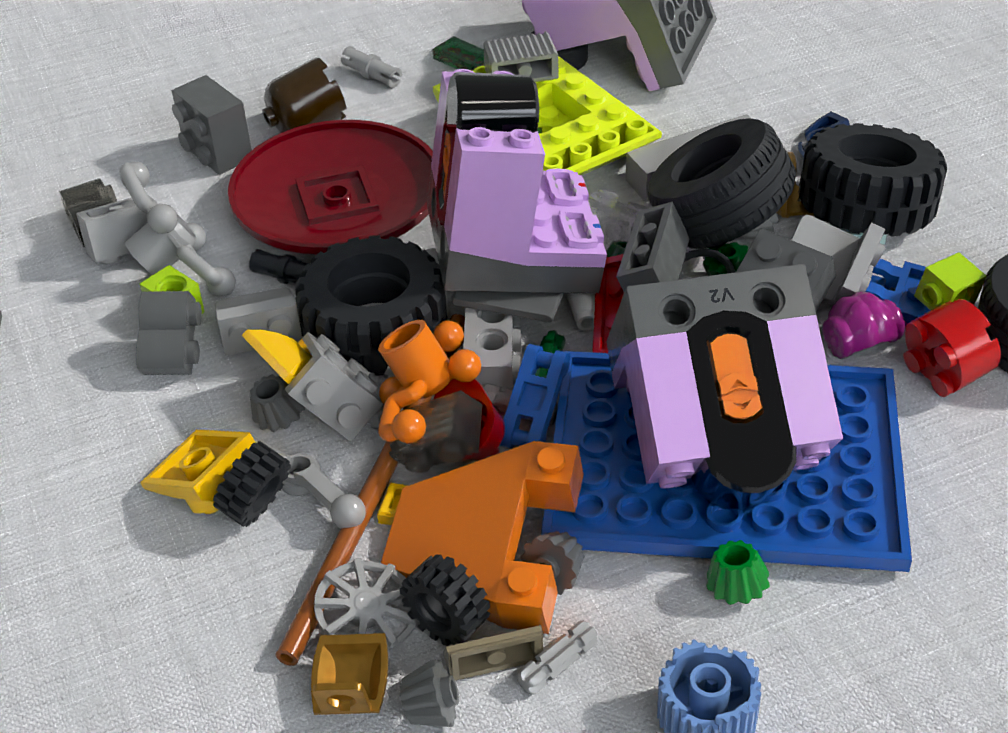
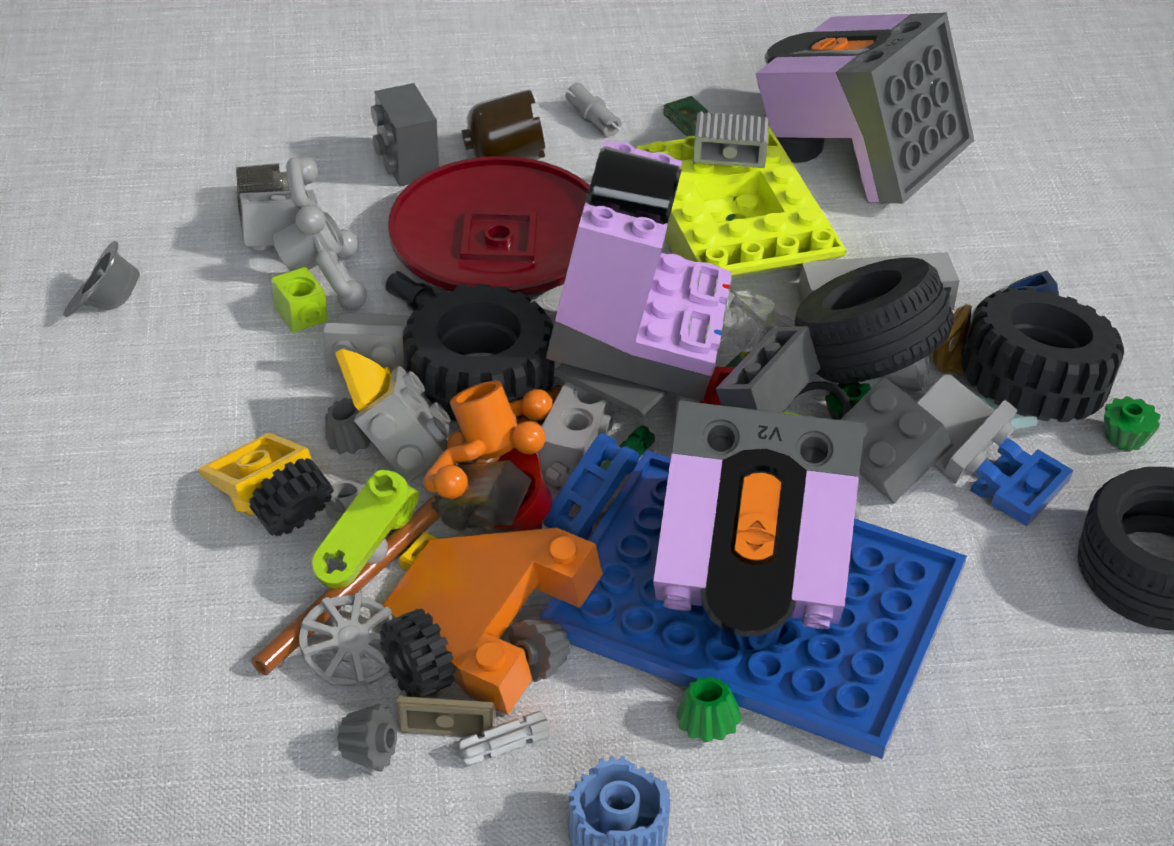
camera: 15 degrees right, 0 degrees up
(167, 333) = (277, 332): dark grey brick -> none
(339, 492) = (379, 507): none -> lime piece
(349, 674) = (305, 696): pearl gold piece -> none
(861, 323) = (958, 500): magenta hair -> none
(950, 280) = (1064, 486): lime brick -> none
(951, 346) = (1033, 549): red brick -> none
(967, 220) = (1130, 423): none -> green piece

